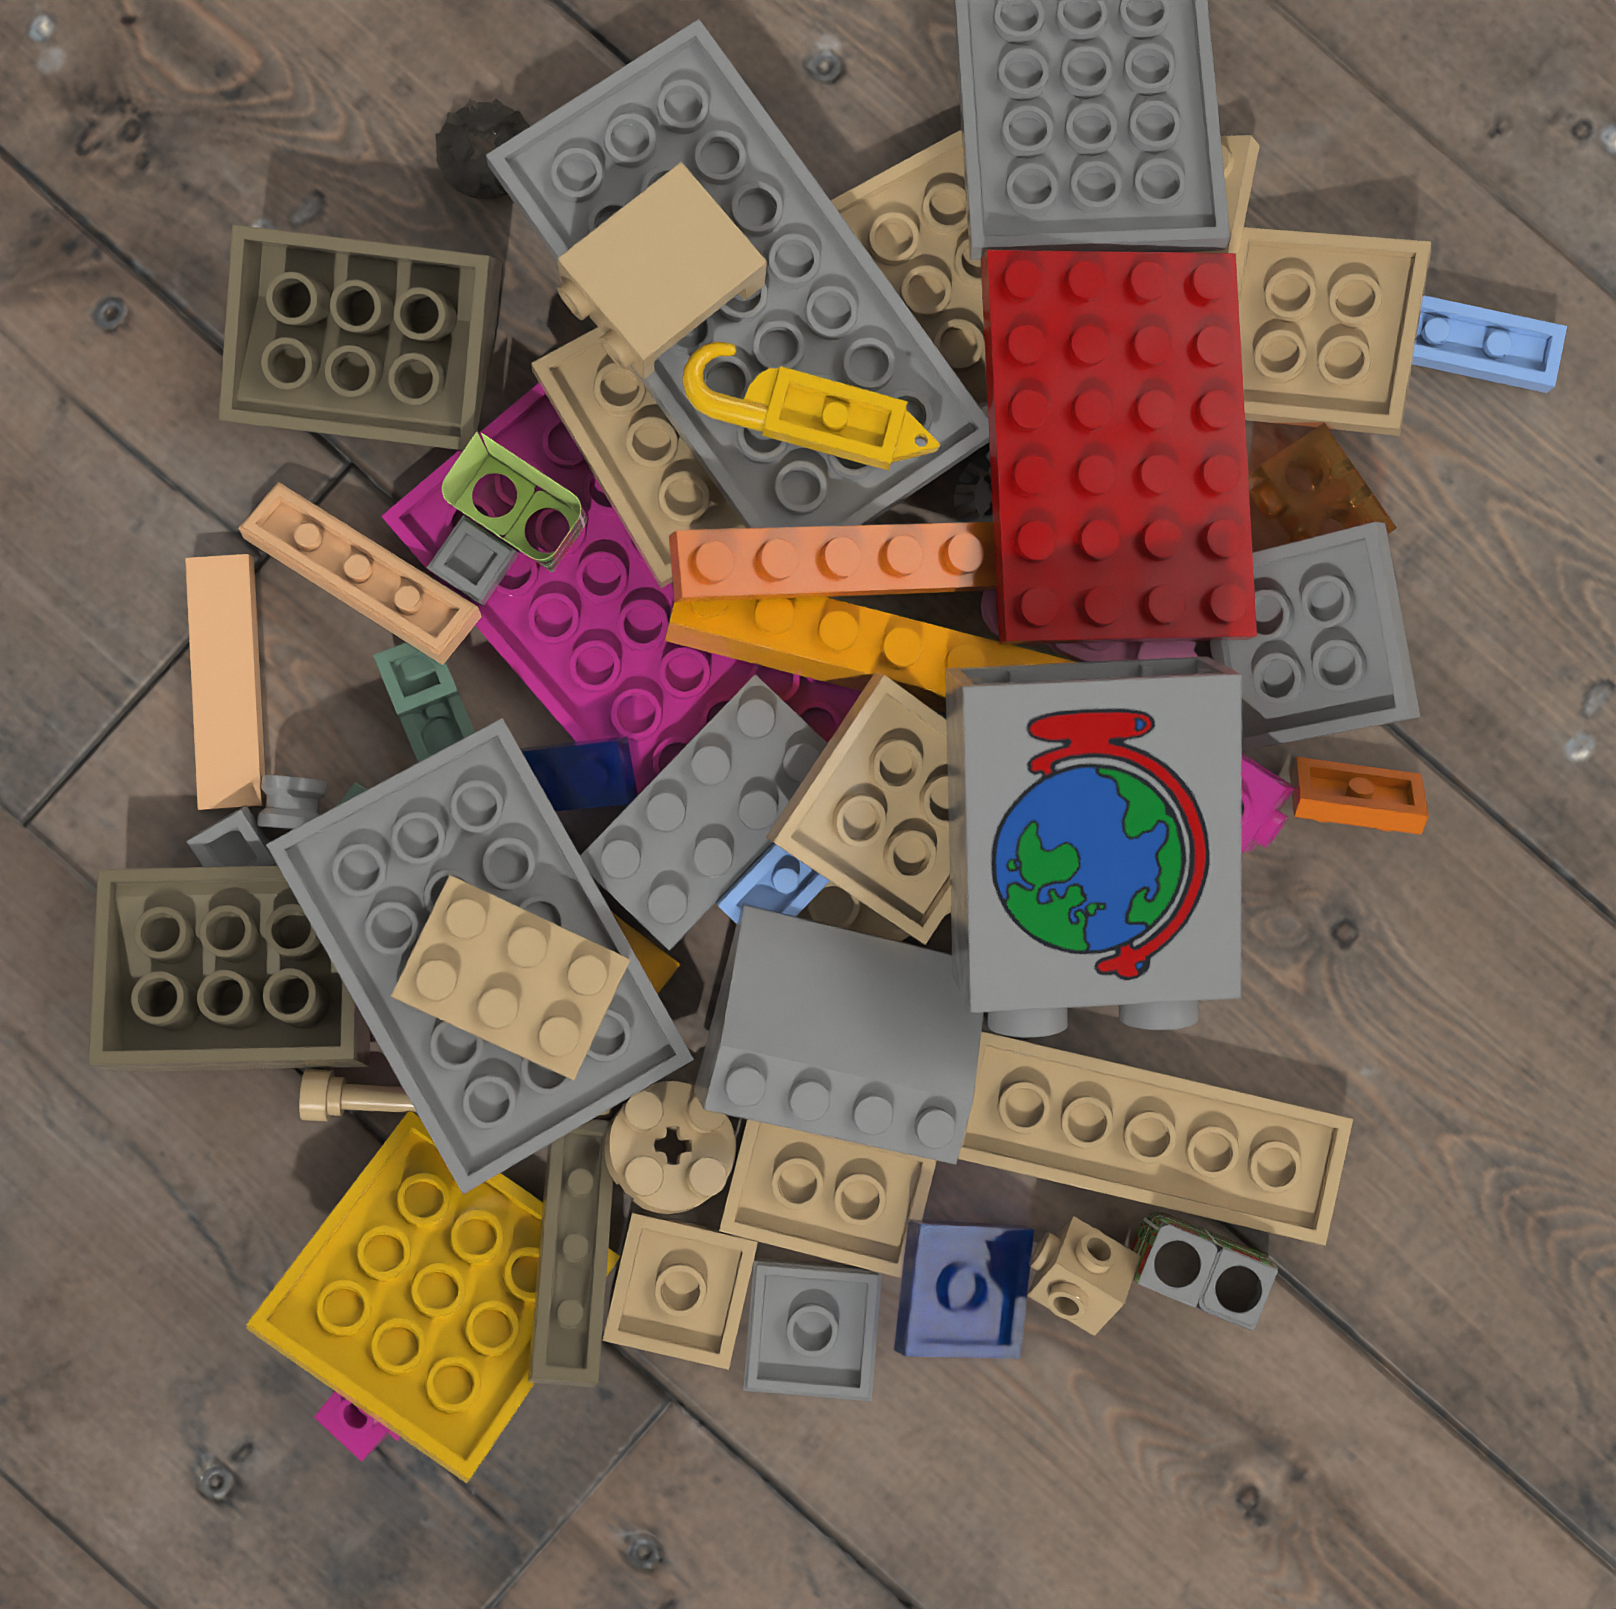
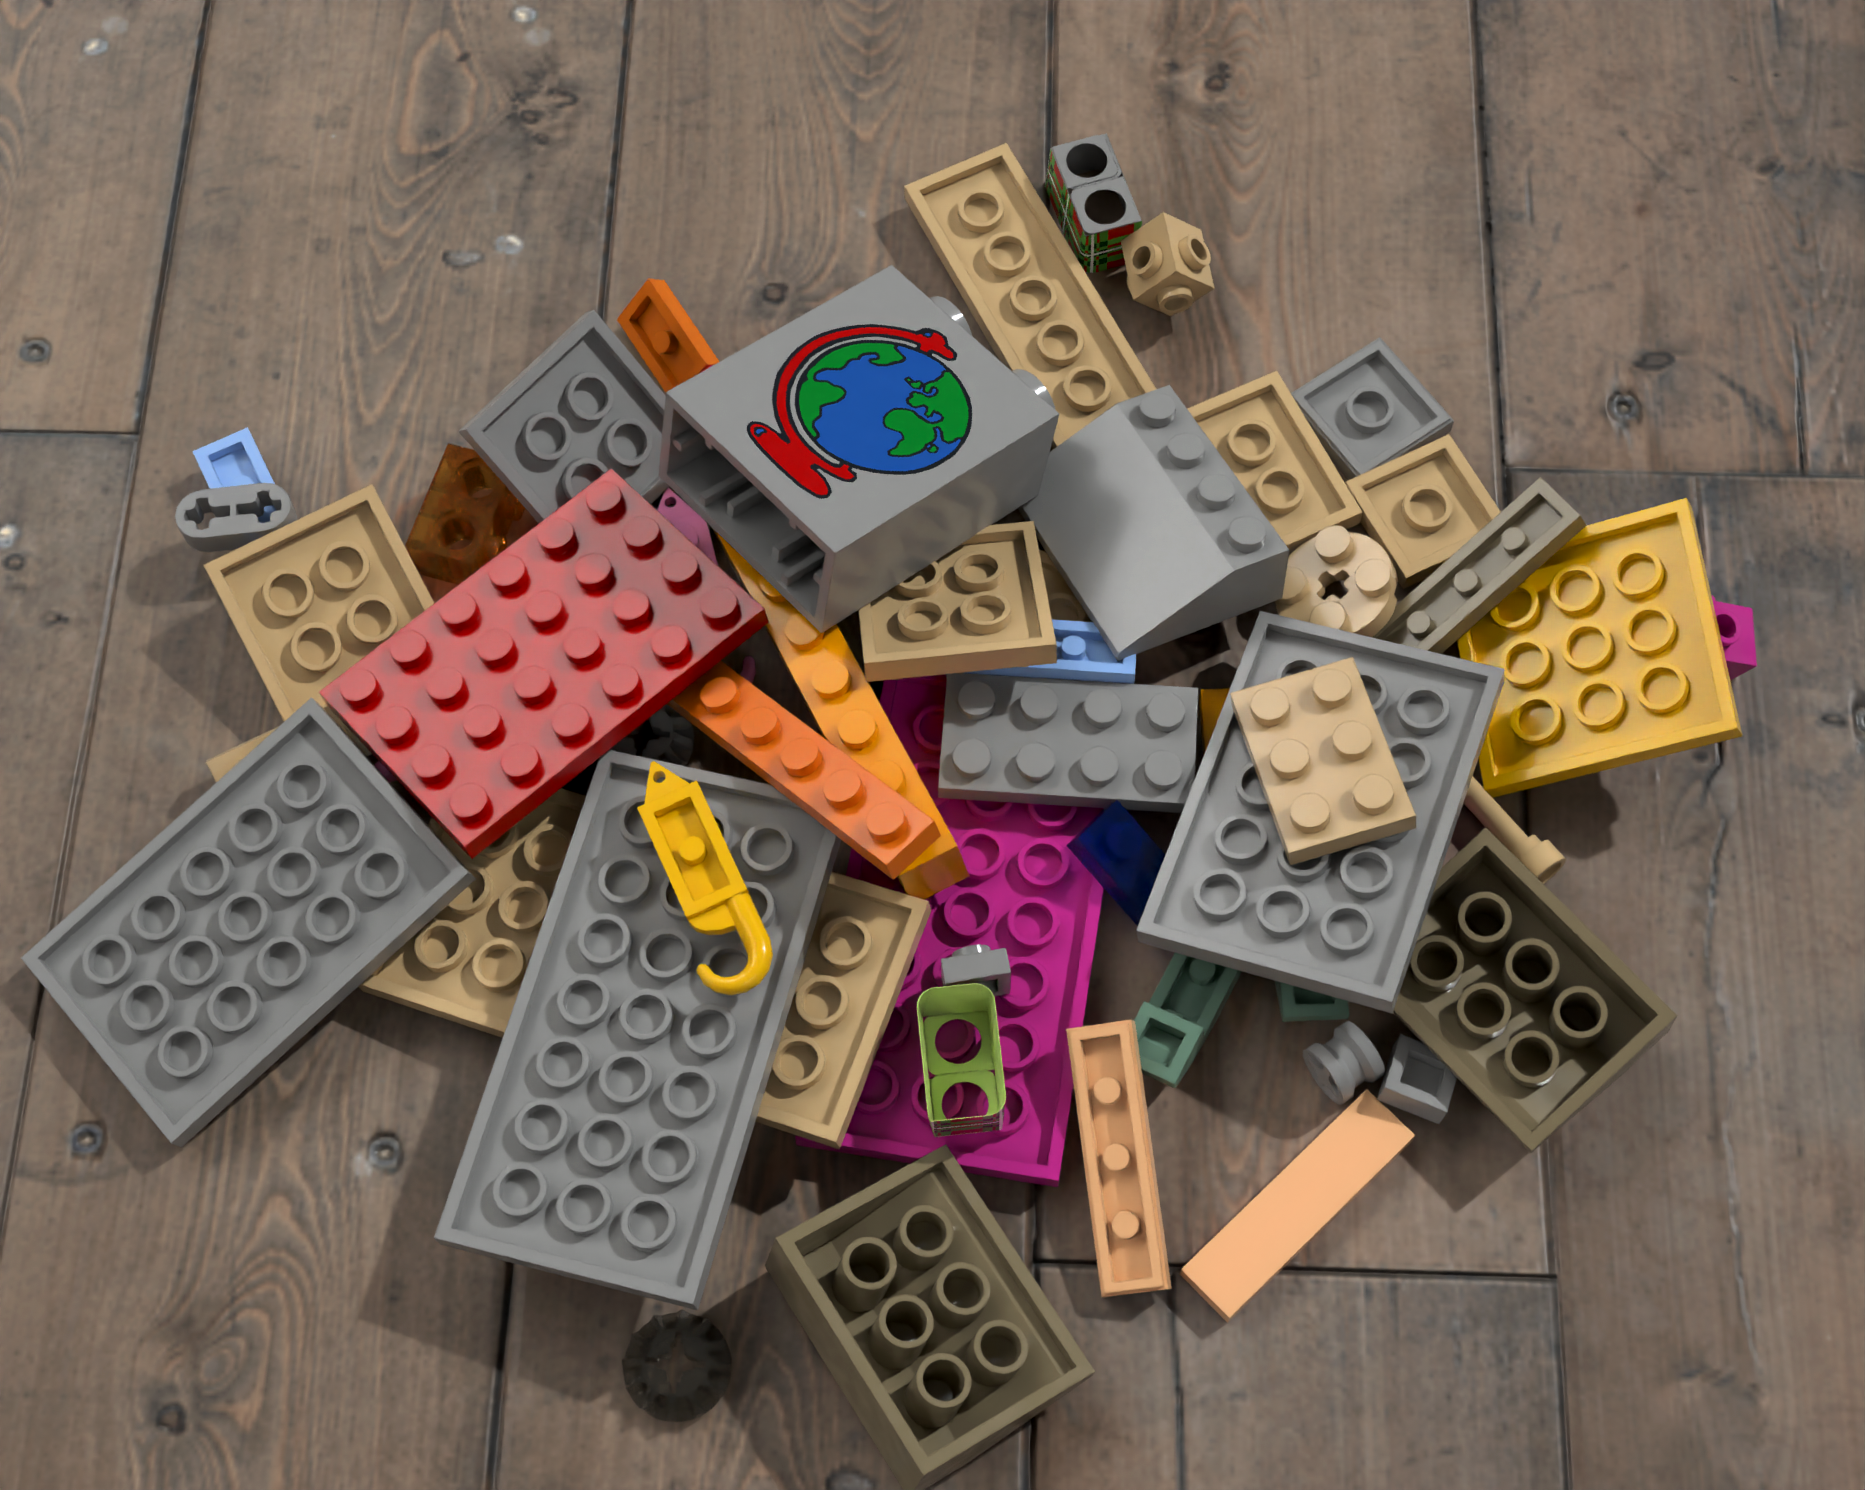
camera: 125 degrees left, 20 degrees down
(473, 561) = (1034, 1072): light grey tile -> none
(577, 574) = (979, 966): none -> light grey plate
(658, 270) = (684, 1064): tan panel -> none
(963, 1289) = (1248, 329): clear blue plate -> none
(1477, 319) = (235, 514): none -> light grey beam

